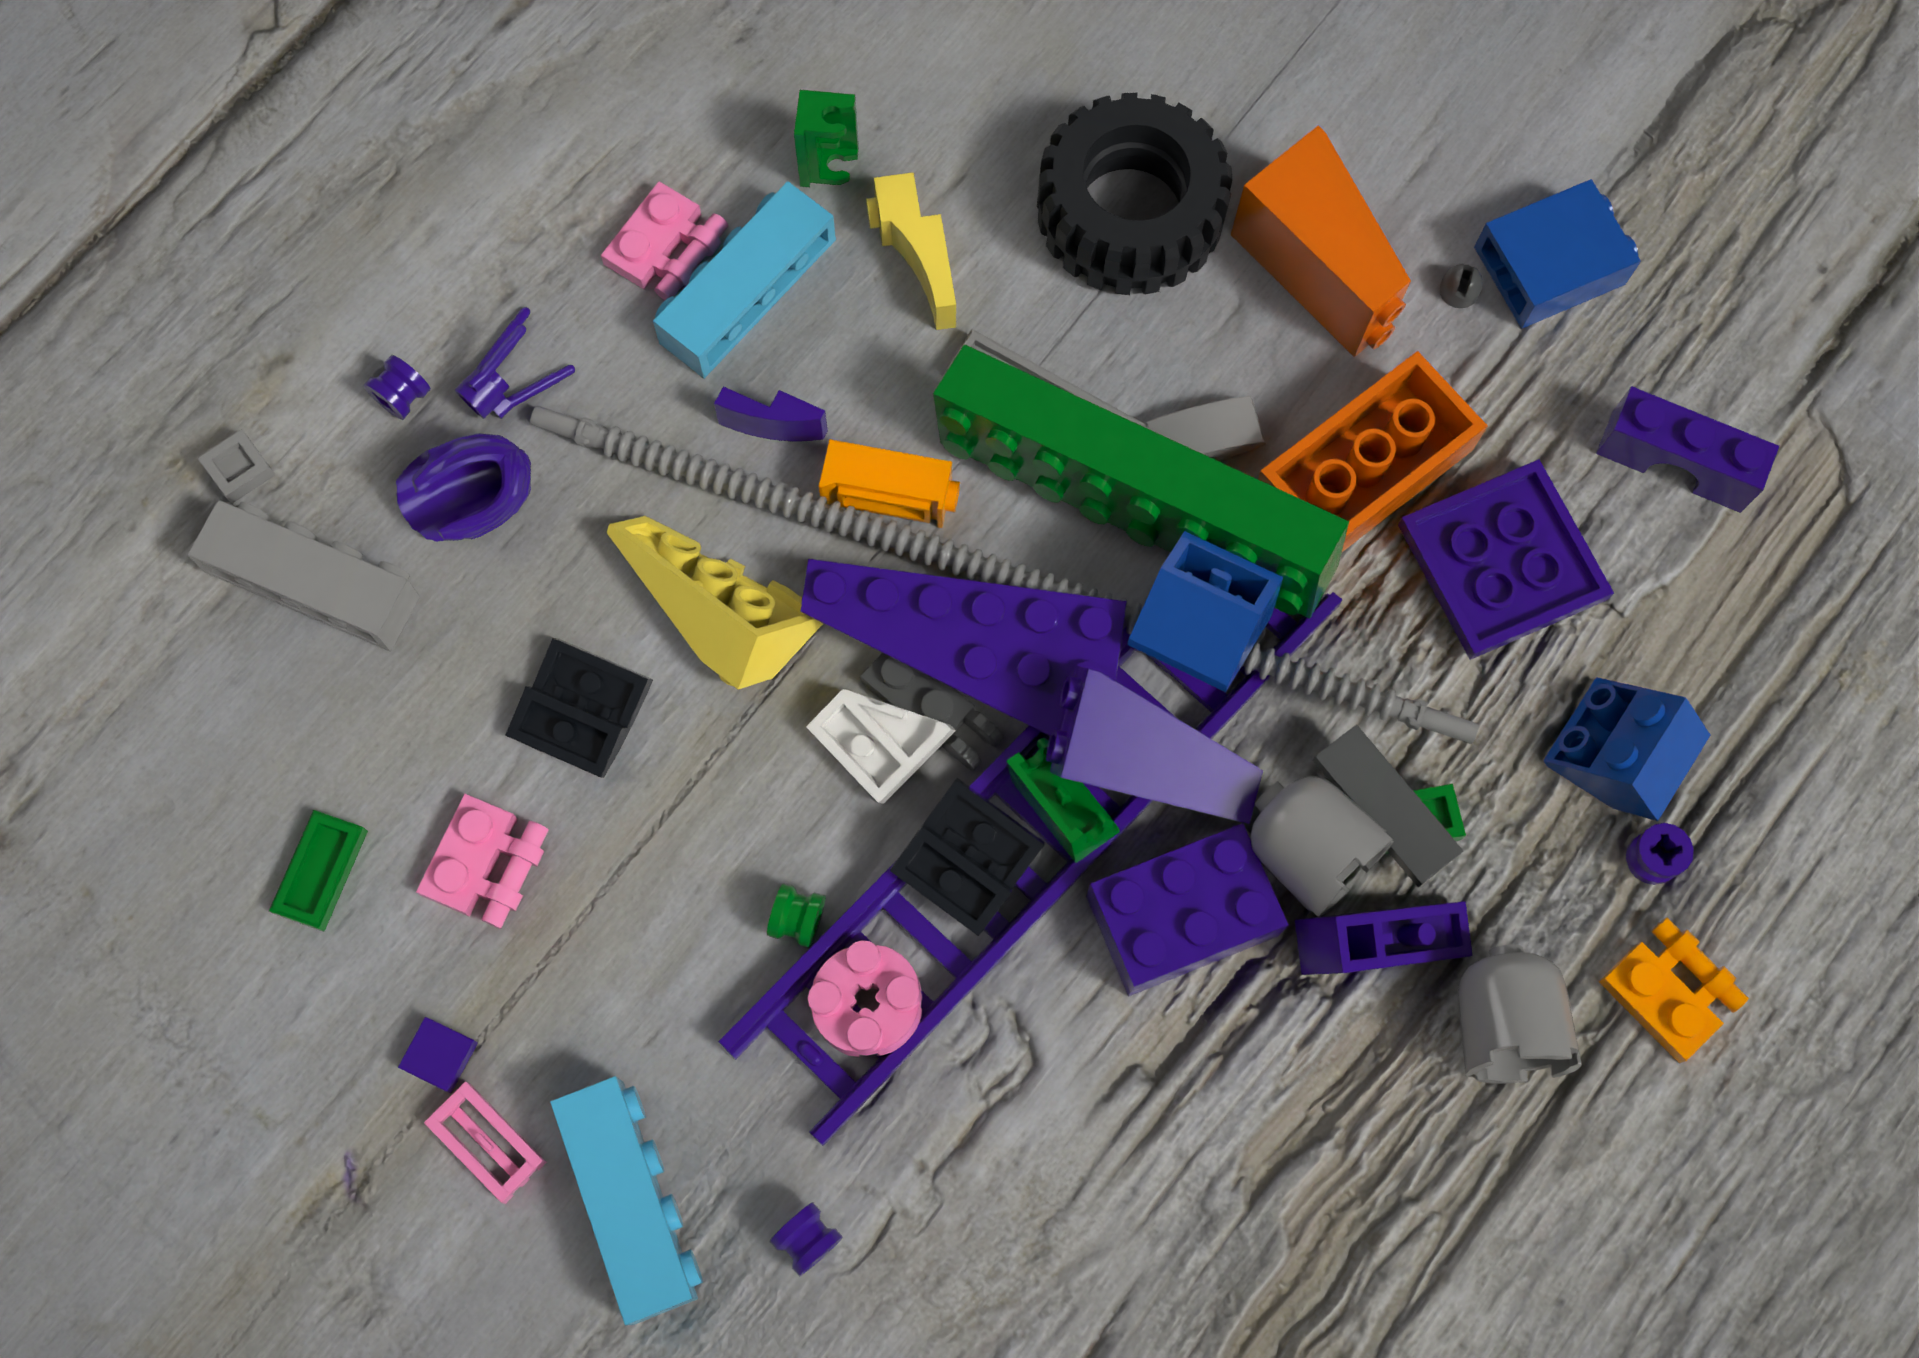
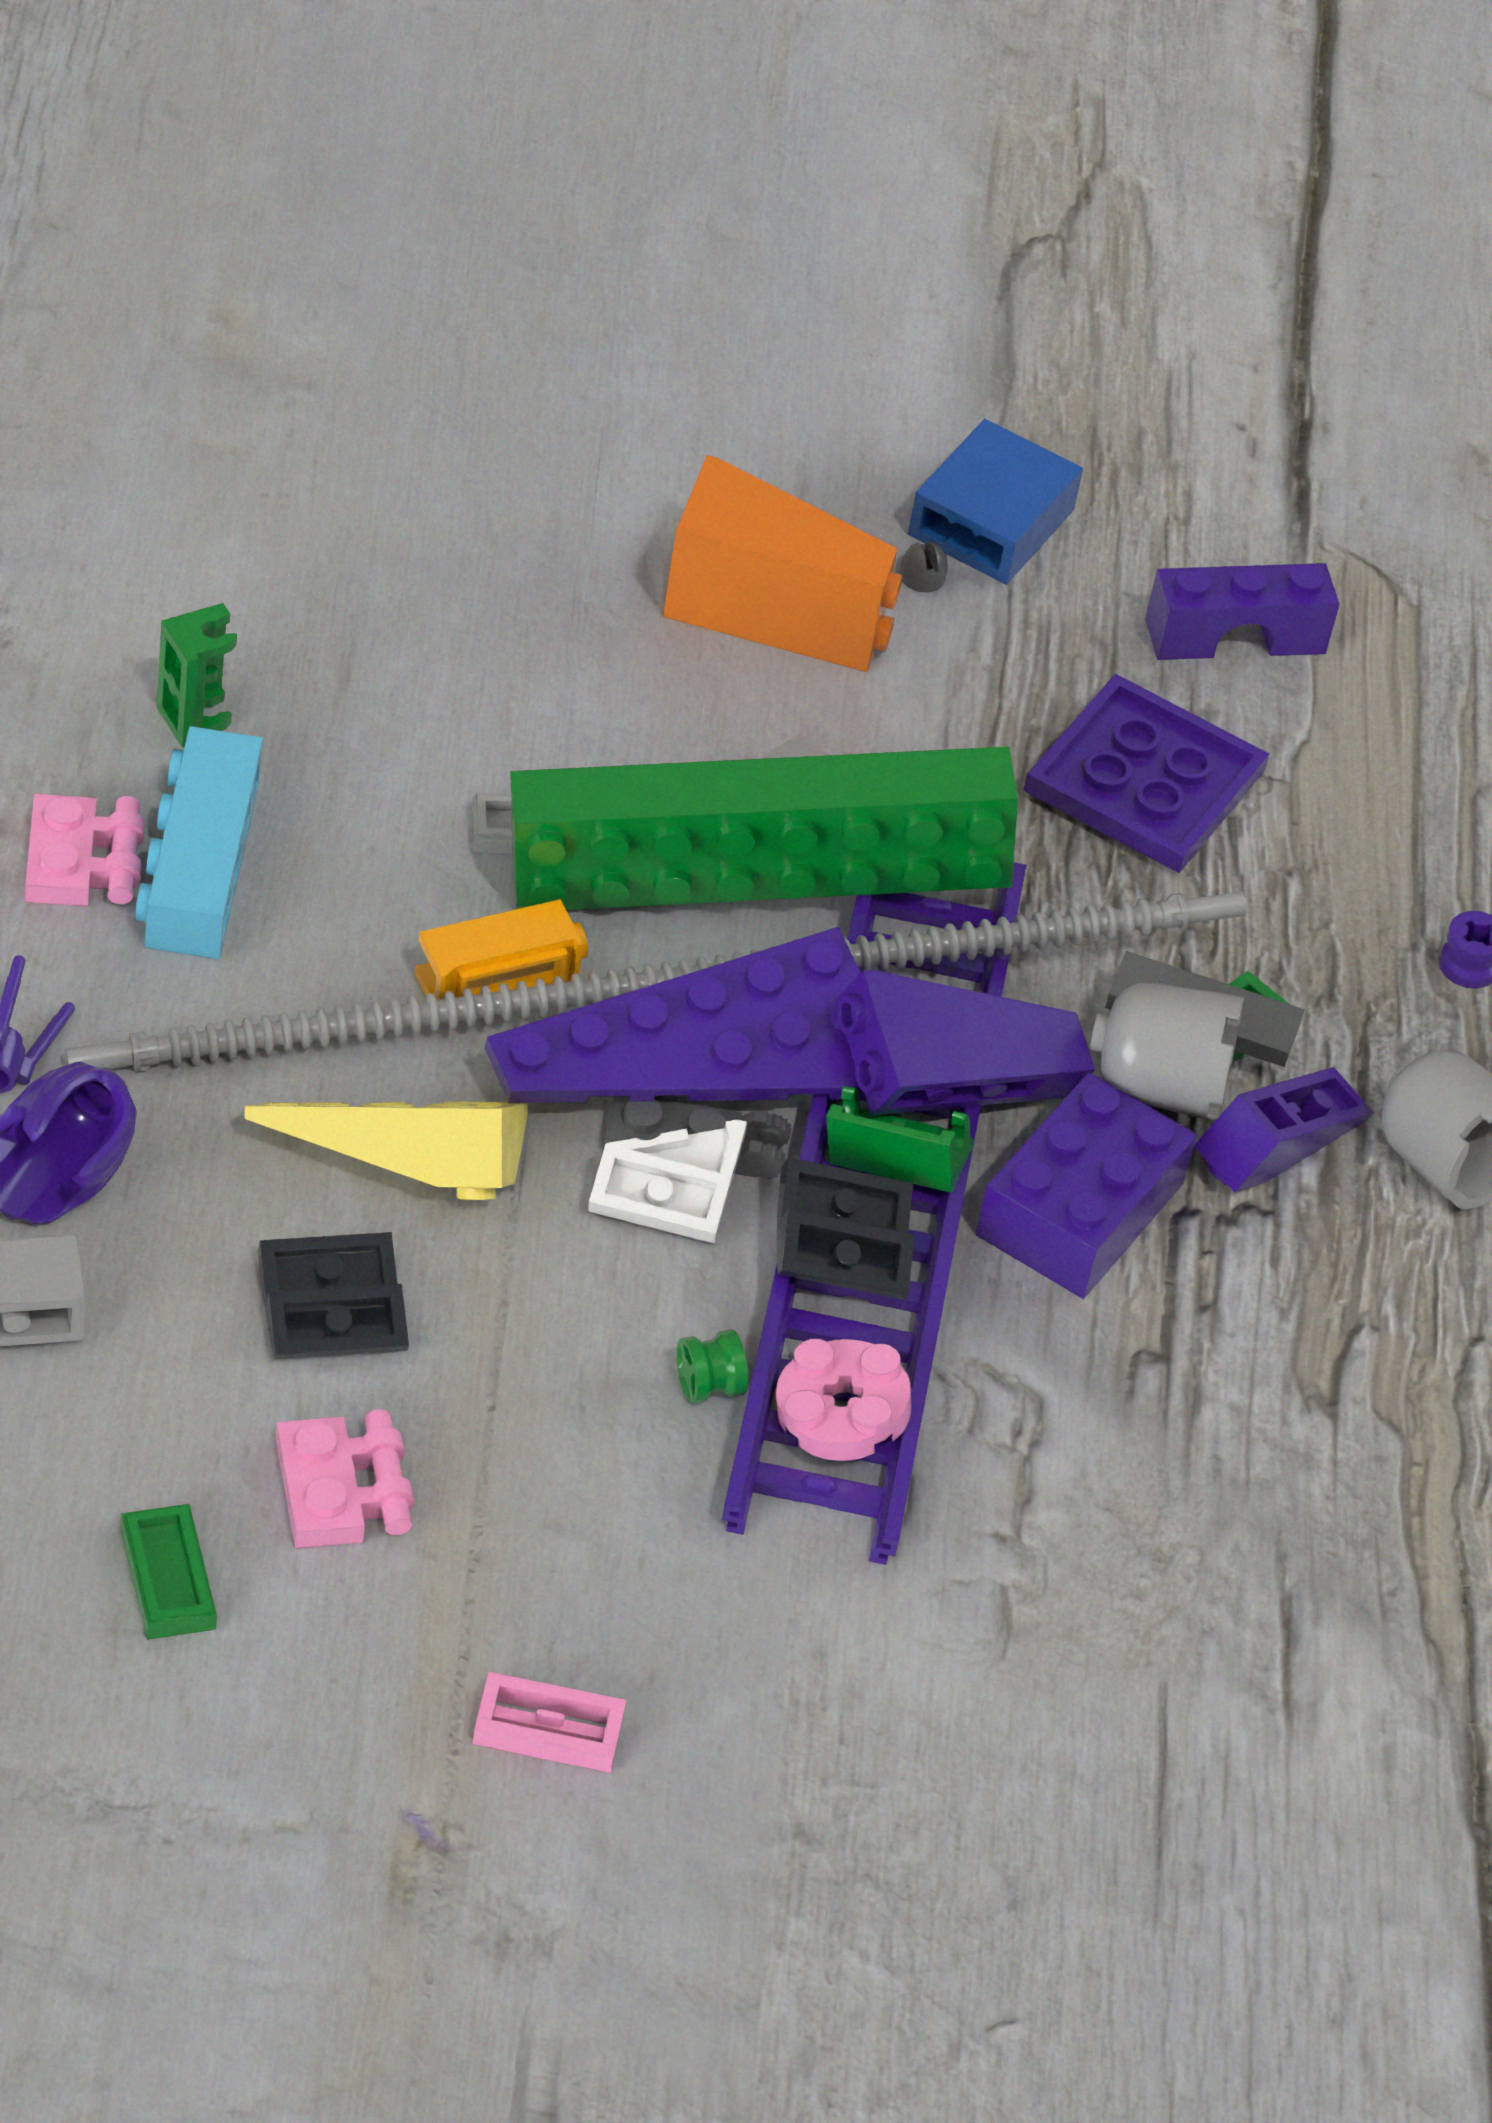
camera: 40 degrees left, 25 degrees down
(438, 1055) = (436, 1669): dark purple tile -> none
(625, 1200) = (744, 1680): medium azure brick -> none
(784, 420) = (318, 958): dark purple slope -> none
(806, 1239) = (946, 1631): dark purple wheel -> none
(917, 239) = (362, 737): light yellow slope -> none
(1144, 138) = (540, 652): black tyre -> none
(1205, 611) = (925, 892): blue slope -> none
(1380, 448) = (973, 692): orange brick -> none
(1629, 746) = (1379, 872): blue slope -> none

